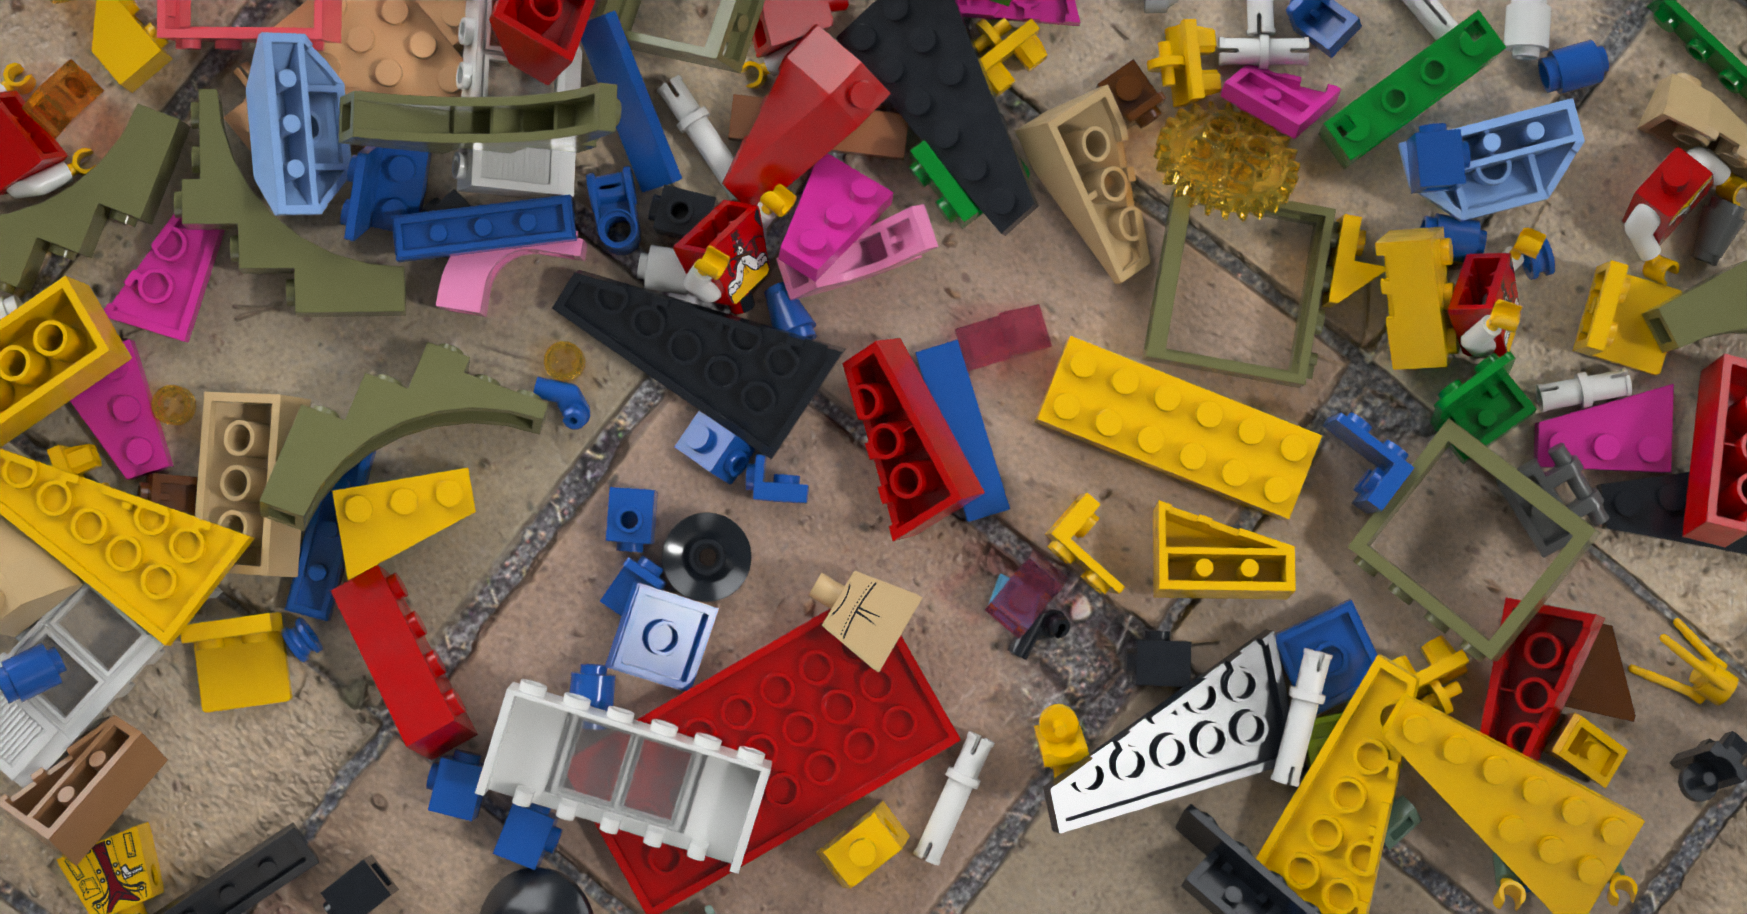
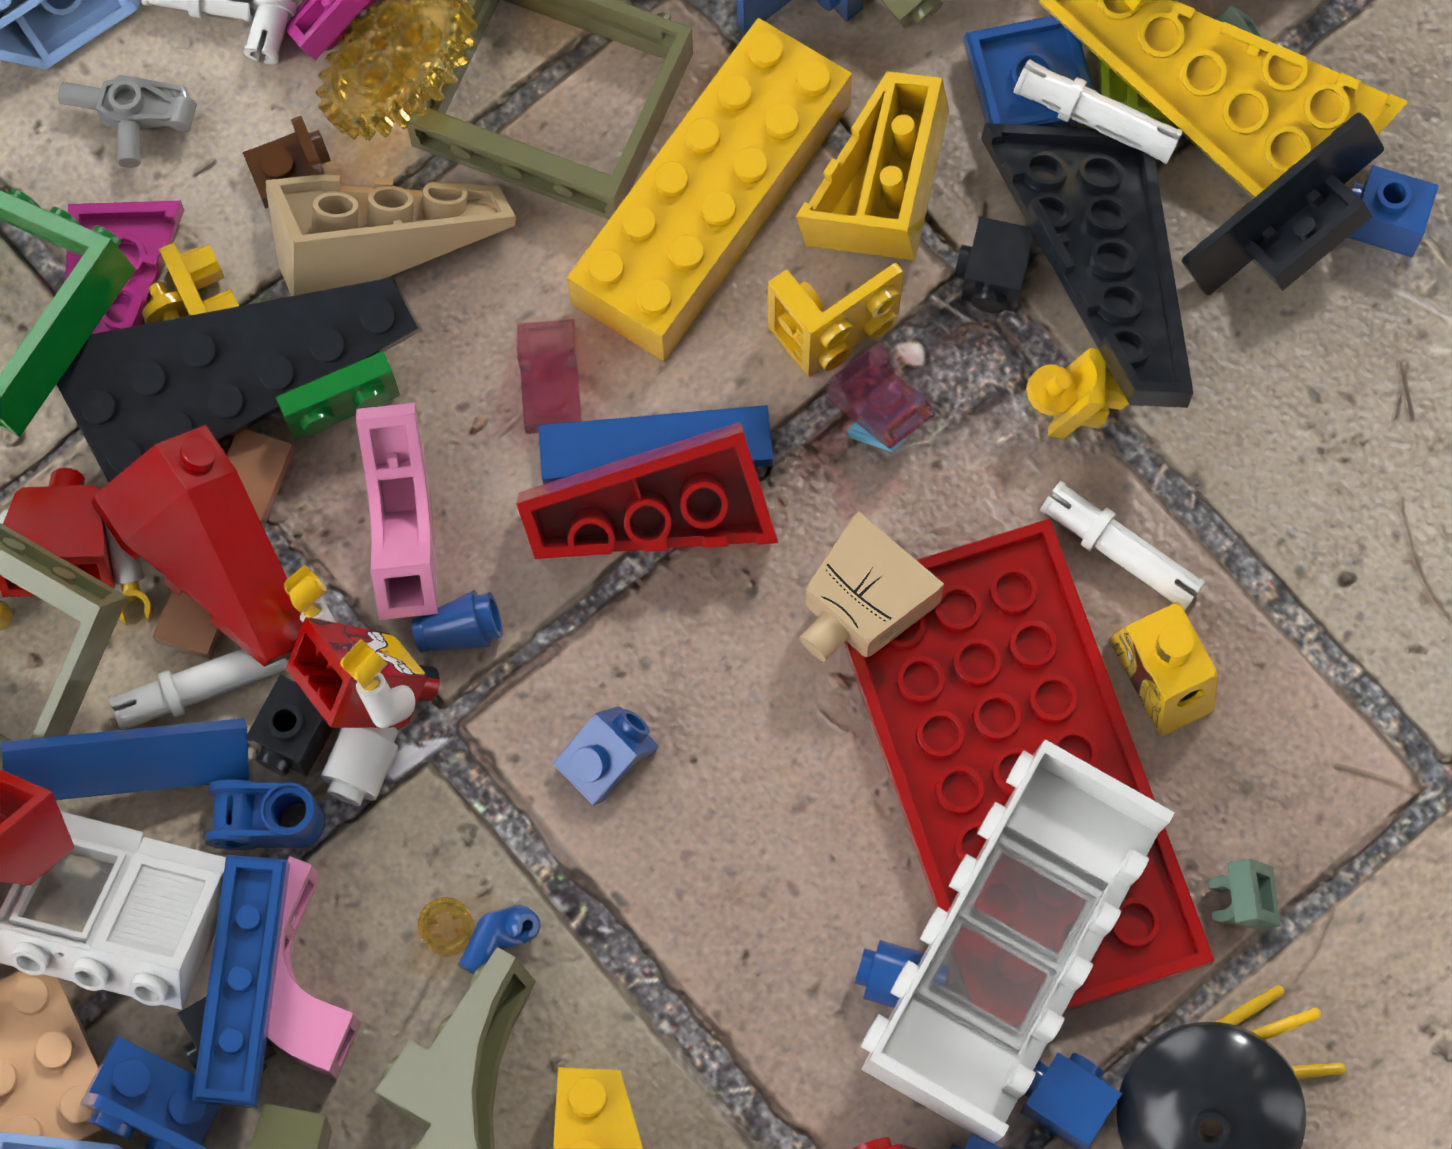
camera: 75 degrees left, 15 degrees down
(504, 124) = (104, 919): olive arch -> none
(631, 518) = (674, 876): blue brick -> none
(641, 571) = (769, 894): blue bracket -> none
(661, 637) = (840, 868): plate -> none
(683, 562) = (742, 760): black dish -> none
(724, 365) = (495, 722): black wing -> none
(782, 489) = (680, 675): blue bracket -> none
(831, 216) = (342, 534): dark pink wing -> none
(1047, 625) = (927, 380): black arm -> none
(1181, 63) = (264, 93): yellow hips -> none

